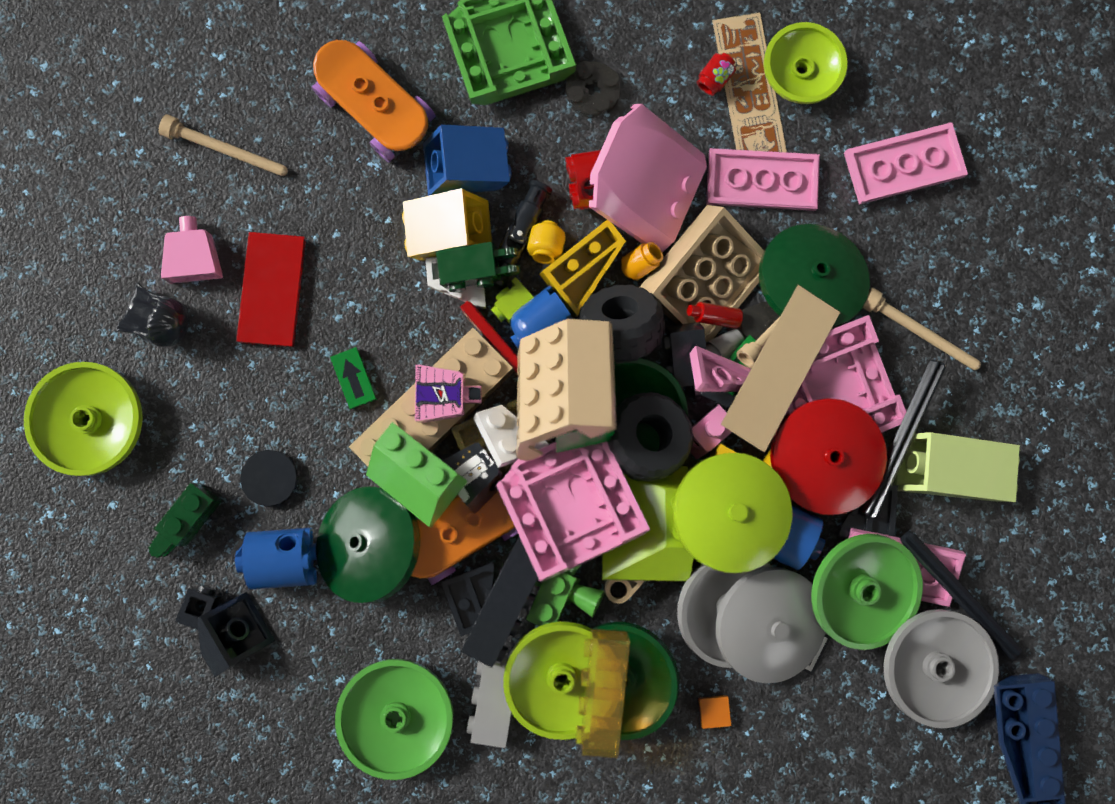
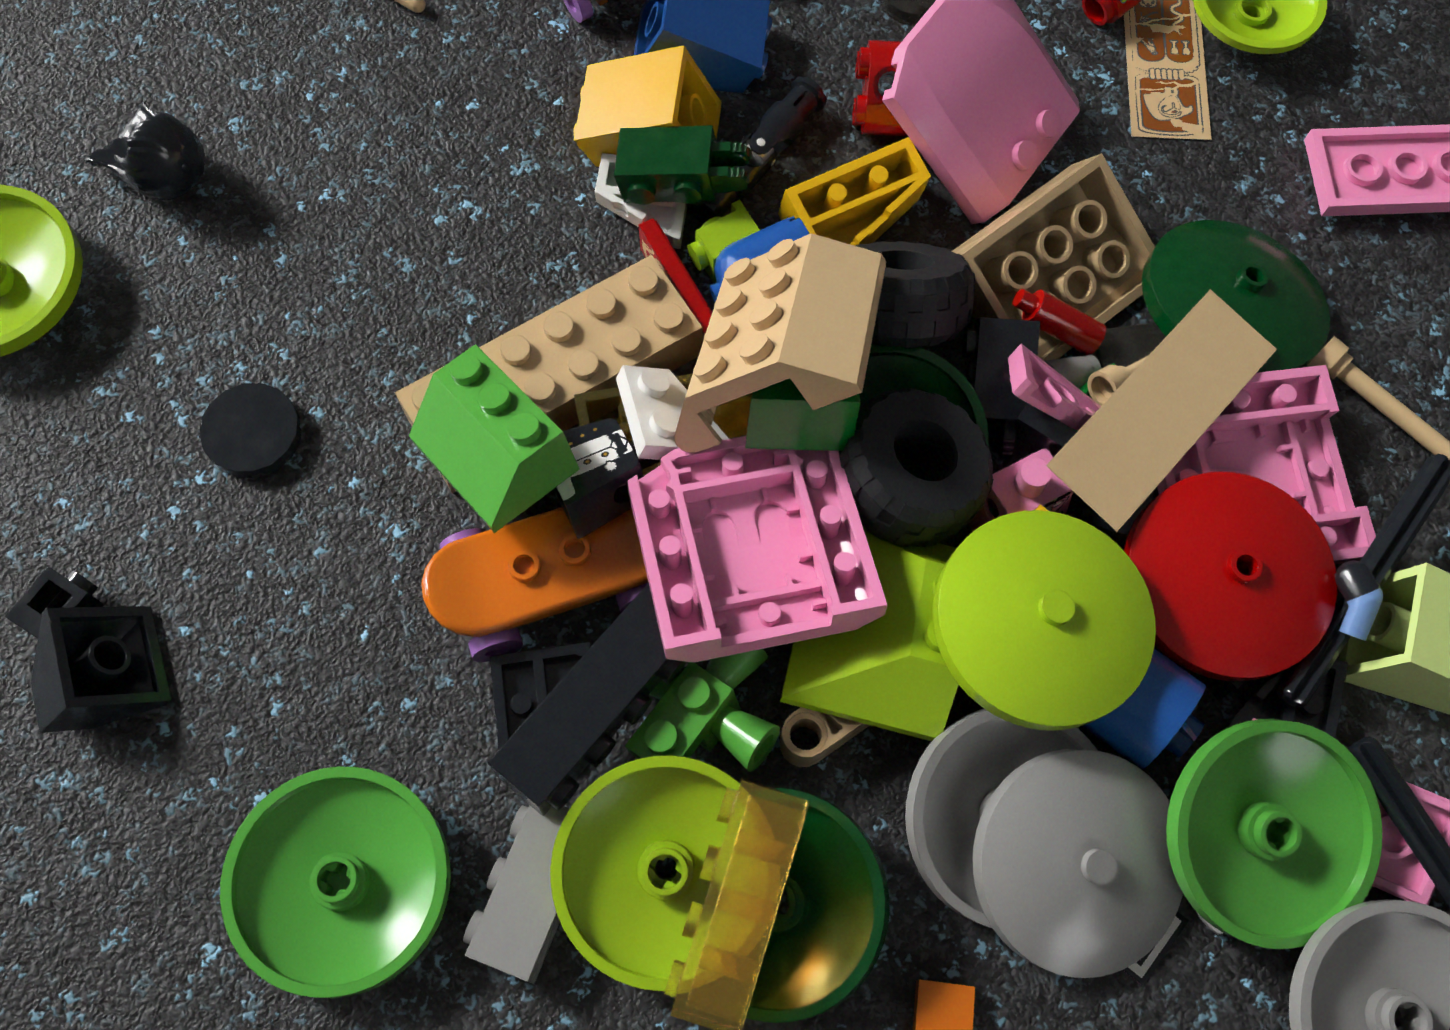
camera: 15 degrees right, 15 degrees down
(183, 519) = (82, 460): dark green hinge -> none
(189, 254) = (236, 82): bright pink torso -> none
(271, 289) = (346, 158): red tile -> none
(277, 558) = (218, 550): blue cylinder -> none
(353, 378) = (437, 308): green tile -> none
(367, 546) = (379, 561): dark green dish -> none
(442, 394) = (572, 331): torso -> none
(546, 242) = (798, 160): yellow head -> none
(641, 260) = (951, 219): light orange brick -> none
(763, 179) = (1172, 152): bright pink tile -> none
(899, 456) = (1362, 596): none -> arm

